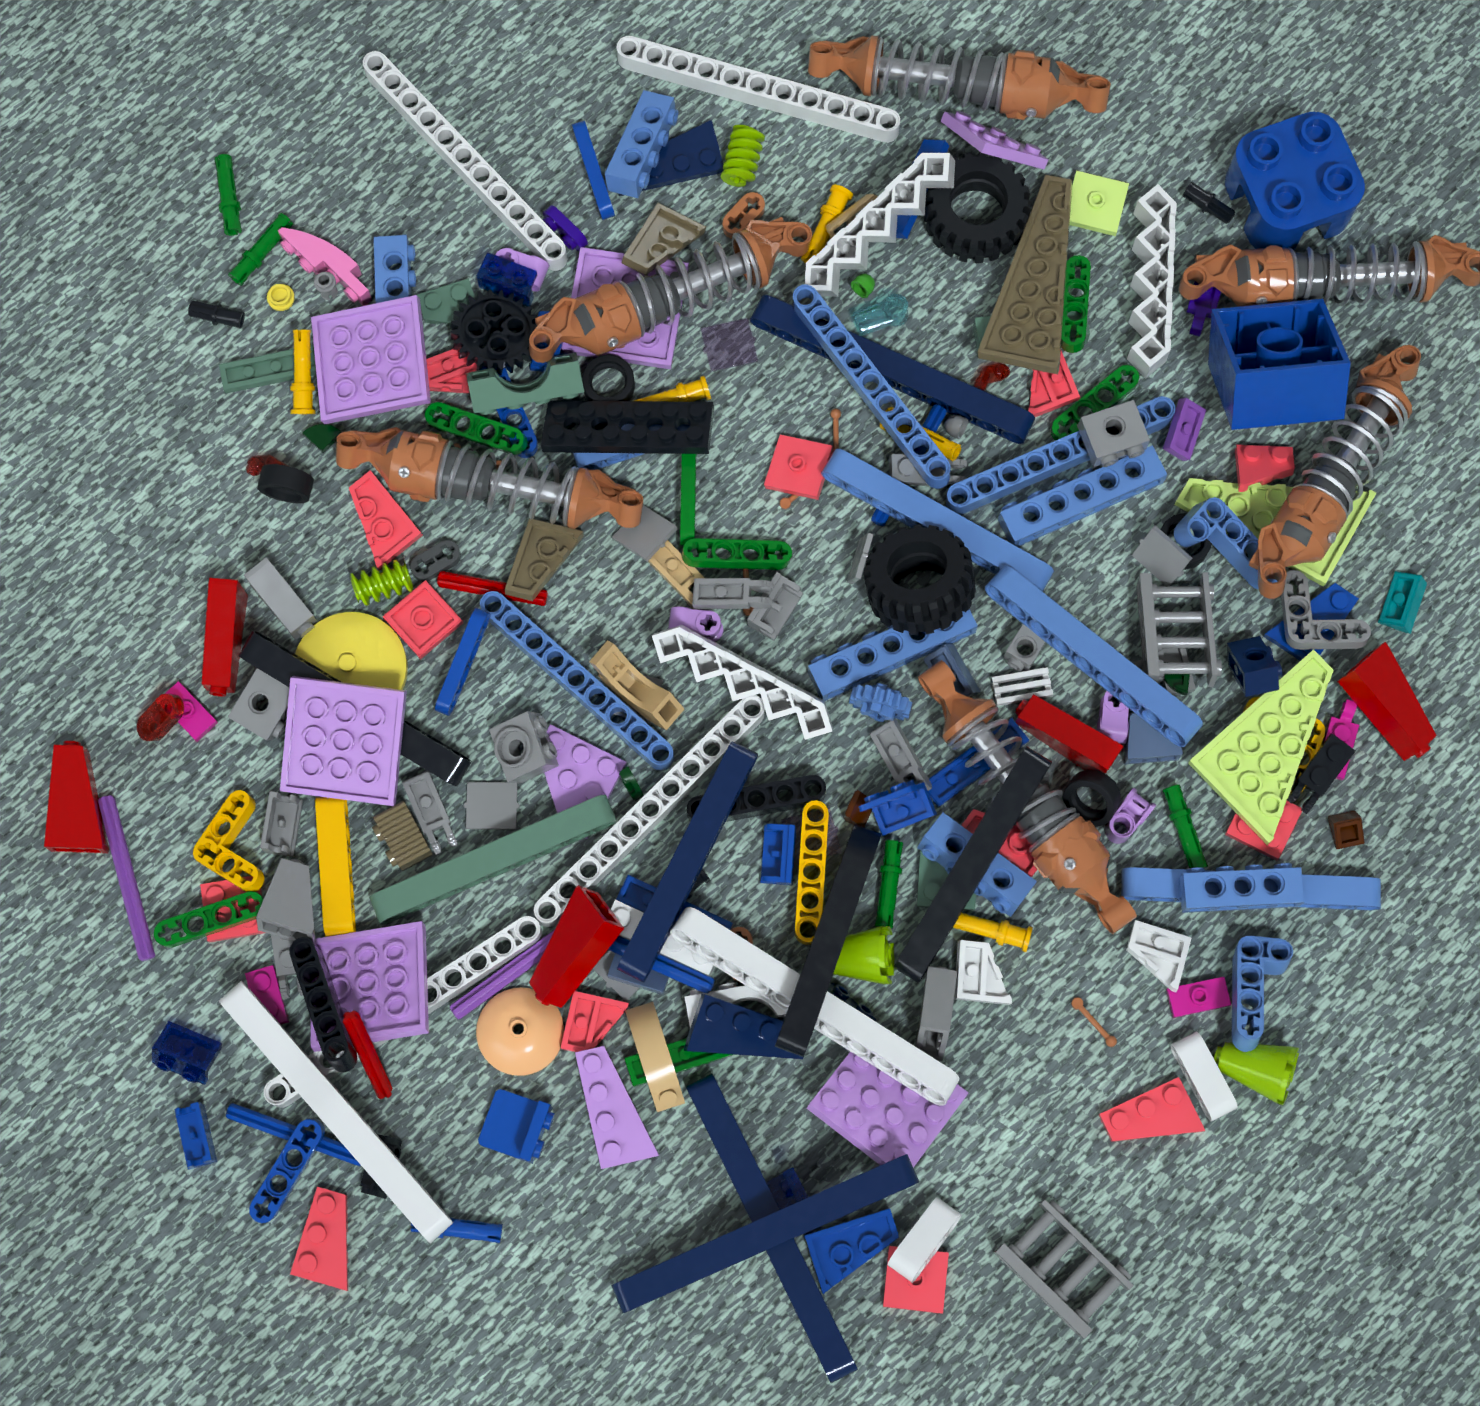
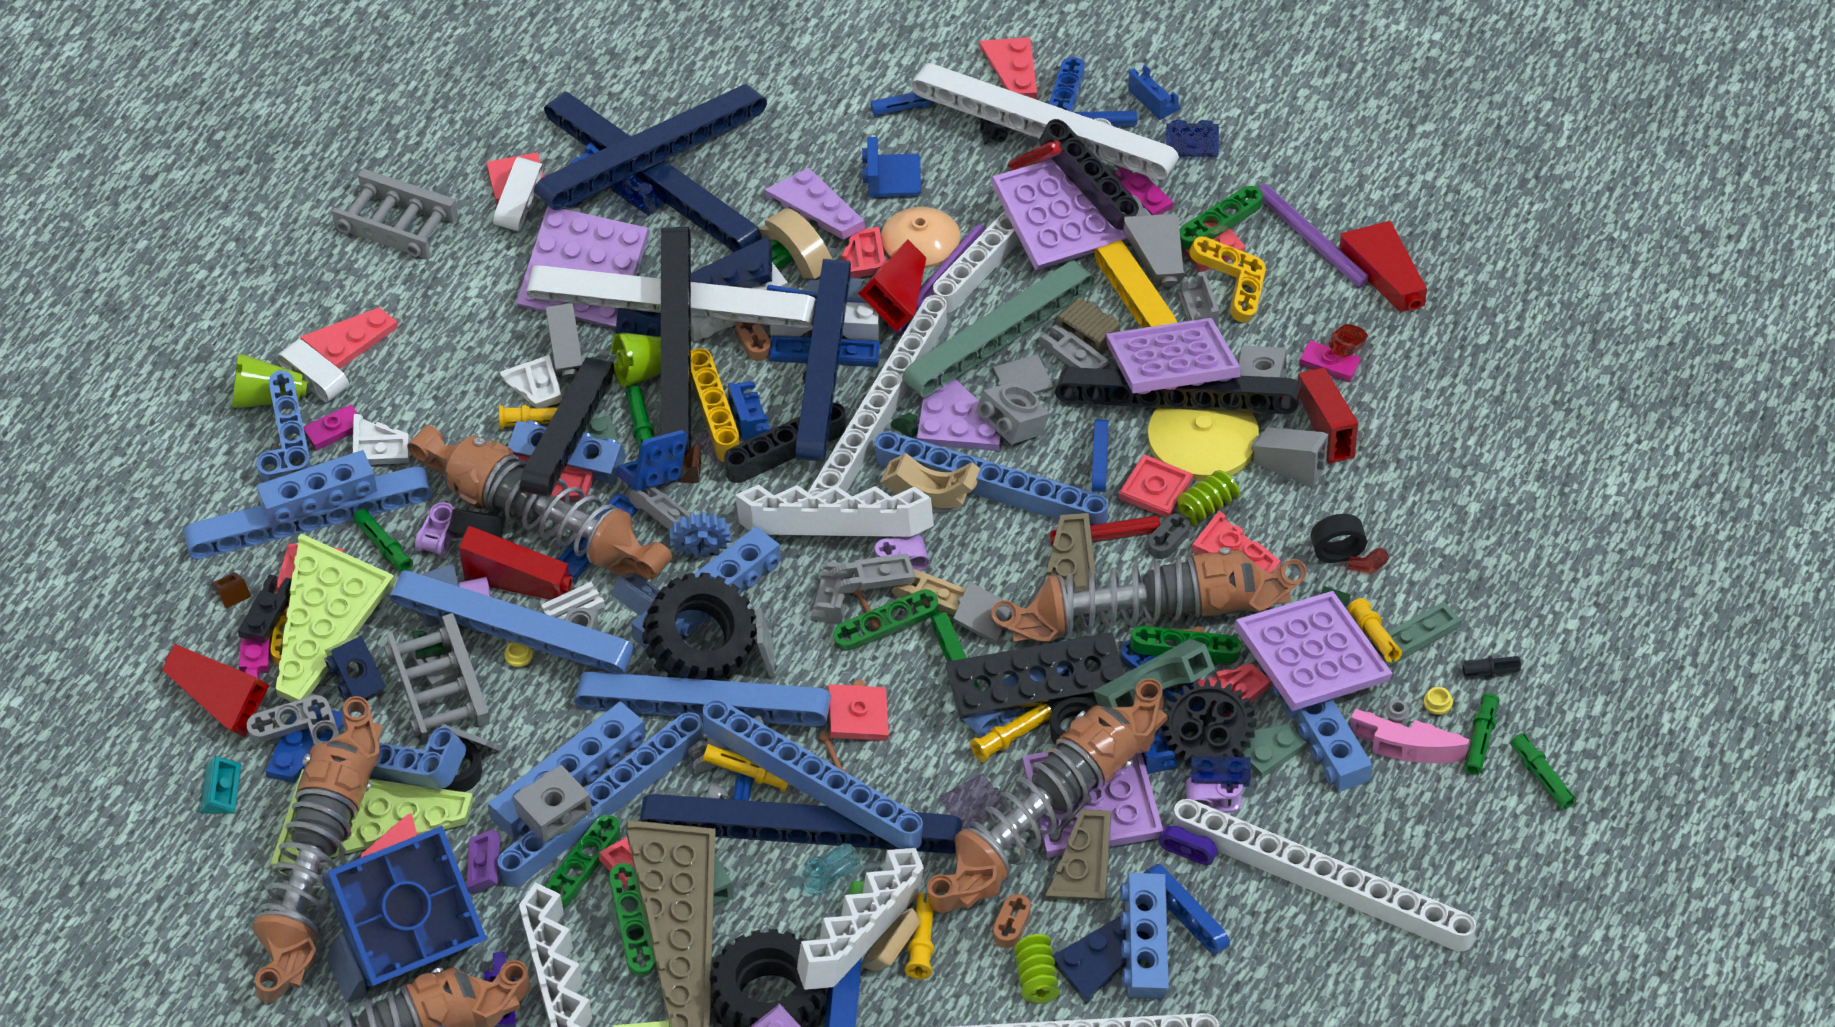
camera: 160 degrees right, 25 degrees down
(1077, 1003) = (440, 393): nougat hinge -> none

